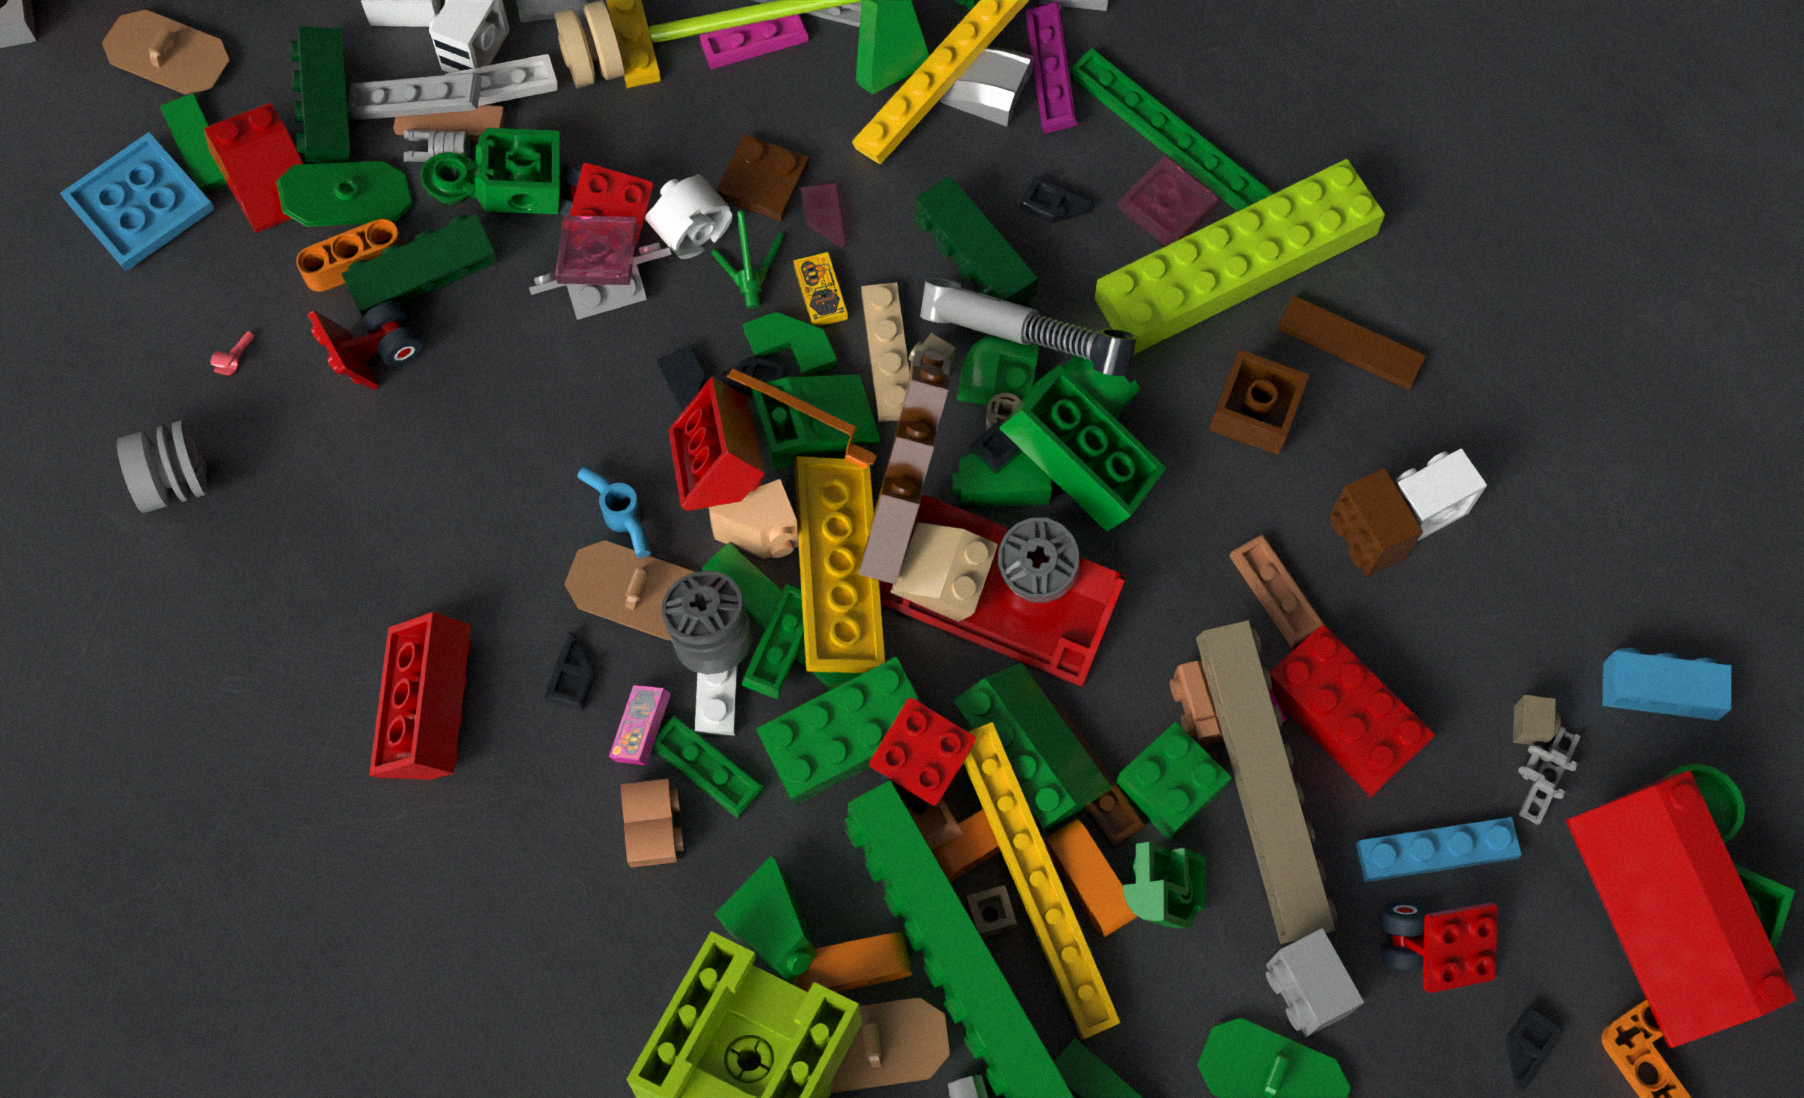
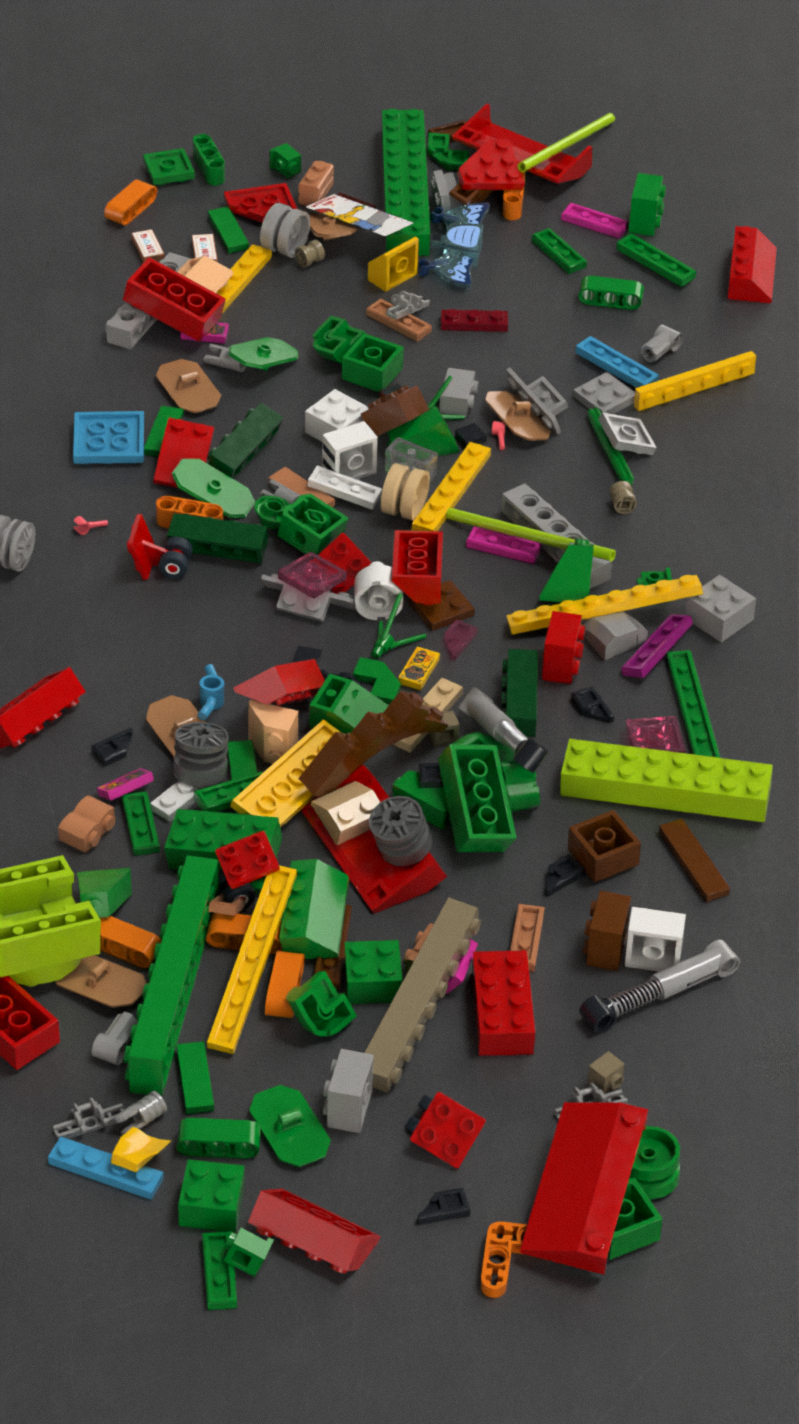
camera: 40 degrees right, 25 degrees down
(414, 96) = (291, 466): light grey tile -> none
(708, 143) = (418, 565): none -> red slope
(855, 454) = (343, 690): orange piece -> none
(969, 147) = (563, 647): none -> red brick
(997, 901) = (216, 963): dark tan plate -> none
(1234, 470) = (562, 874): none -> black tile
(1438, 849) = (489, 1096): dark azure plate -> none
(1502, 472) = (715, 960): none -> piece
(1667, 684) = (702, 1107): dark azure brick -> none

